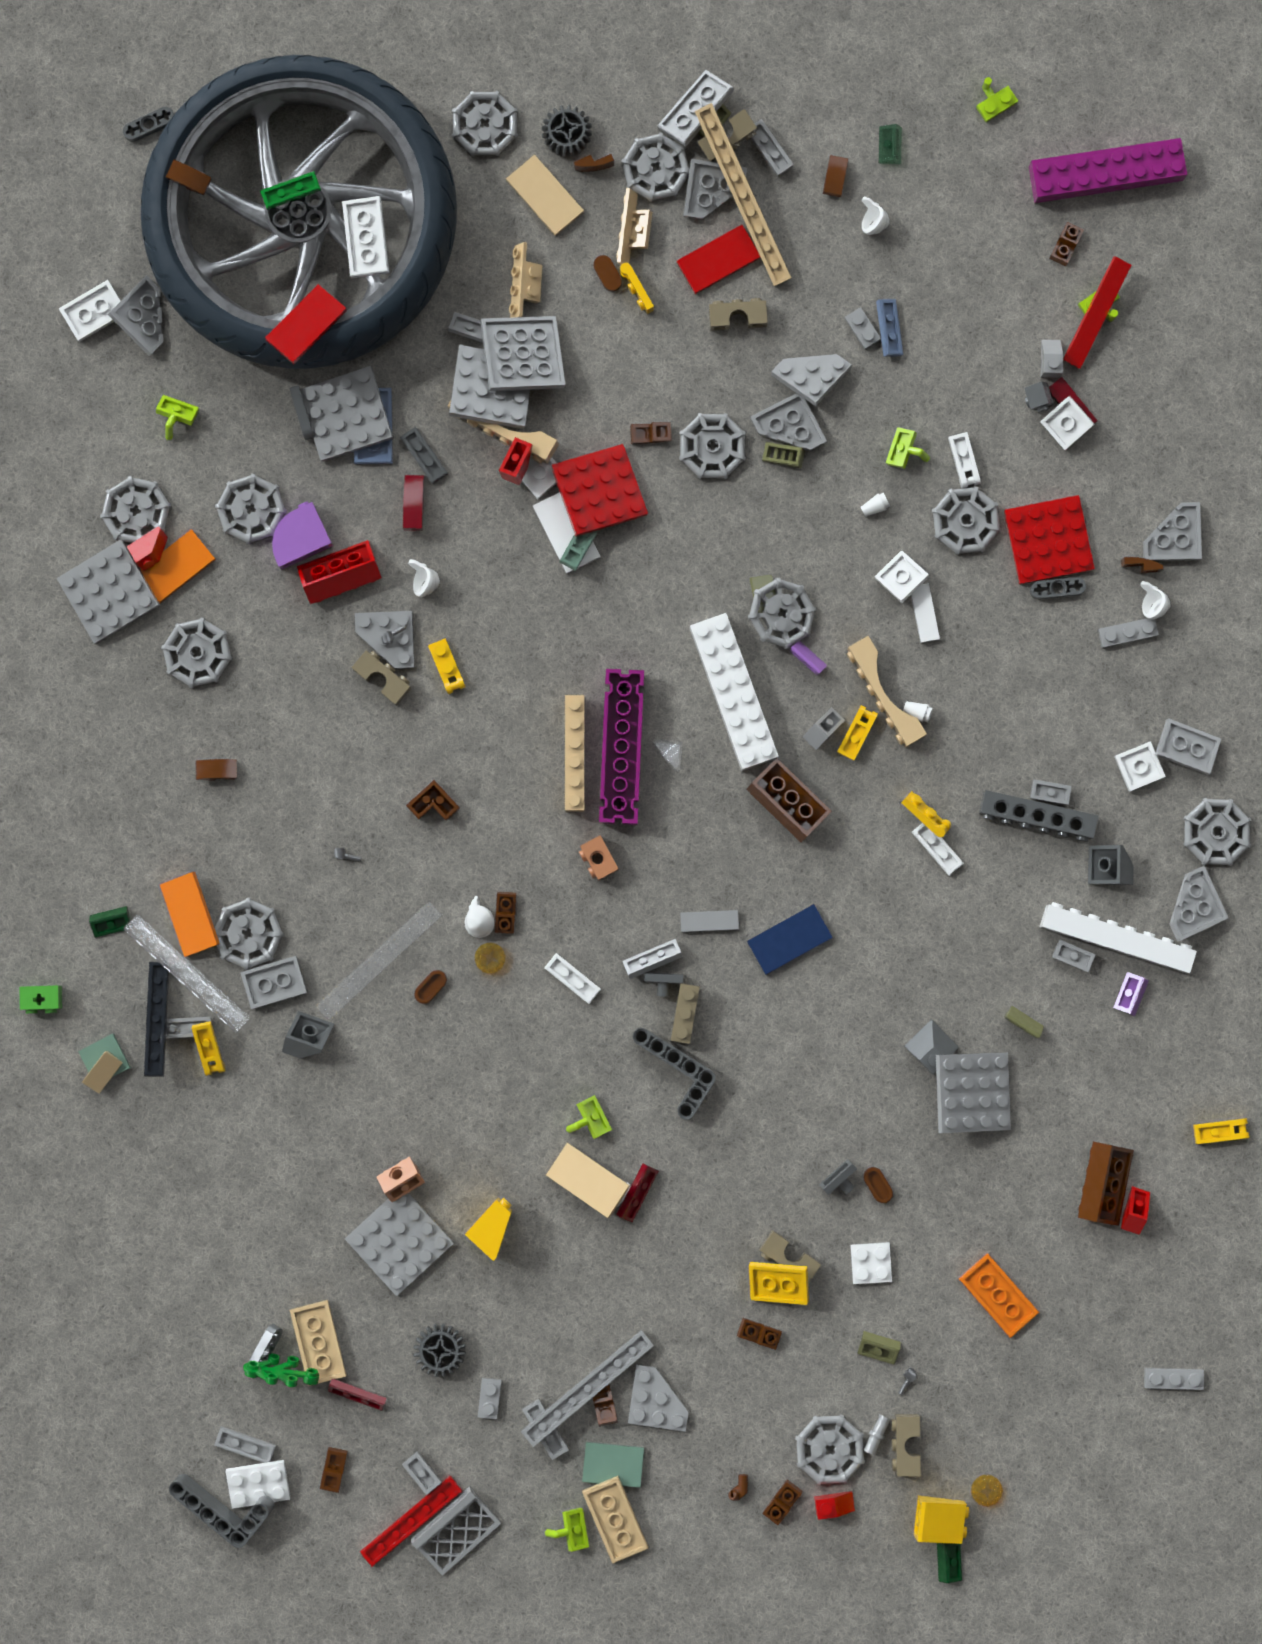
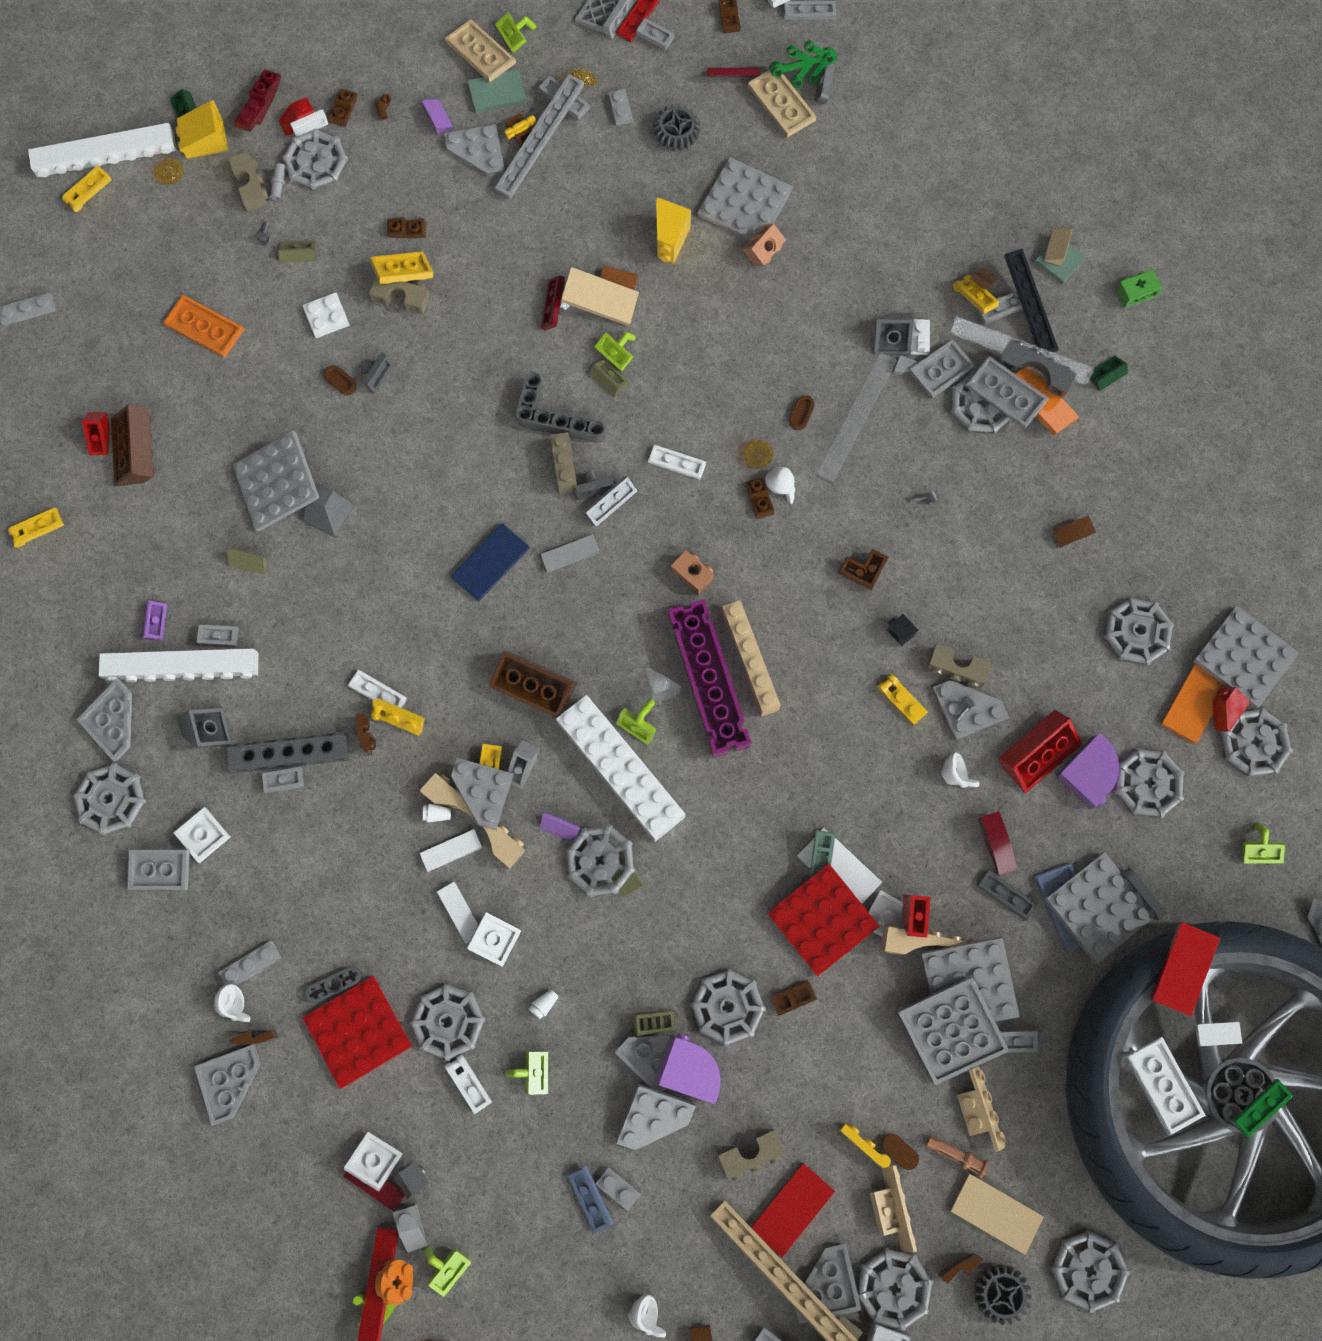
camera: 160 degrees right, 10 degrees down
(167, 925) = (1057, 377): none -> dark grey arch
(192, 1062) = (984, 278): none -> reddish brown slope
(223, 930) = (1007, 392): none -> light grey tile
(280, 1025) = (921, 337): none -> white plate
(300, 262) = (1218, 1034): none -> white tile
(309, 1000) = (904, 365): none -> light grey tile
(421, 731) = (901, 629): none -> black brick
(509, 1442) = (585, 76): none -> clear yellow gear
(553, 246) = (966, 1159): none -> nougat pin
(561, 1198) = (620, 277): none -> dark orange tile
(603, 1407) = (520, 127): none -> yellow axle
(608, 1093) = (608, 377): none -> olive slope
(685, 1456) = (437, 115): none -> medium lavender slope
(702, 726) = (636, 725): none -> lime plate
(767, 401) = (689, 1069): none -> medium lavender brick
(823, 1492) = (309, 123): none -> white tile
(869, 713) = (482, 790): none -> light grey plate
(869, 1539) = (260, 99): none -> dark red slope
(915, 672) = (450, 850): none -> white tile
(962, 803) = (366, 739): none -> reddish brown slope
(1031, 311) = (447, 1271): none -> lime plate
(1049, 1538) = (102, 150): none -> white brick
(1071, 323) = (398, 1271): none -> orange plate
(1077, 1498) = (86, 188): none -> yellow plate

